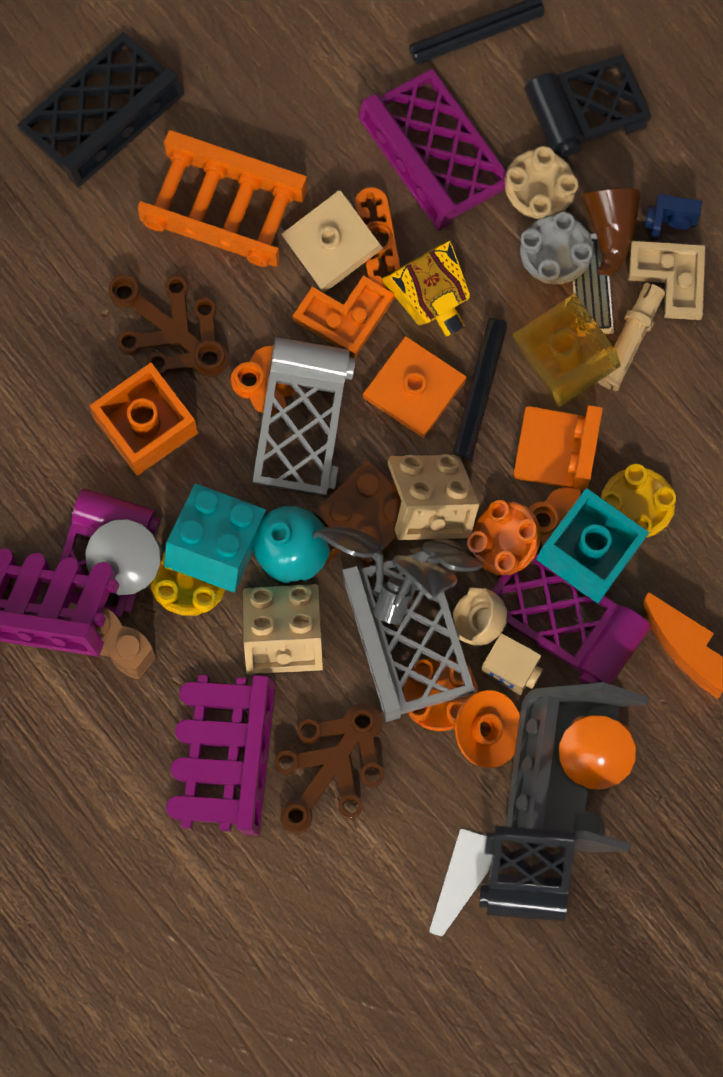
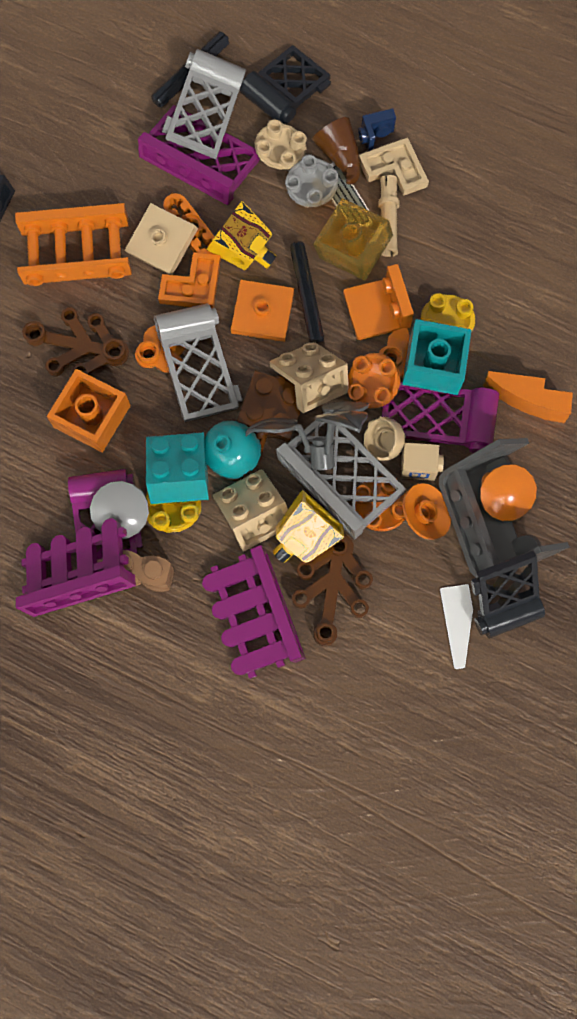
camera: 25 degrees left, 0 degrees up
(331, 684) = (306, 530): none -> torso
(496, 52) = (215, 77): none -> light grey piece

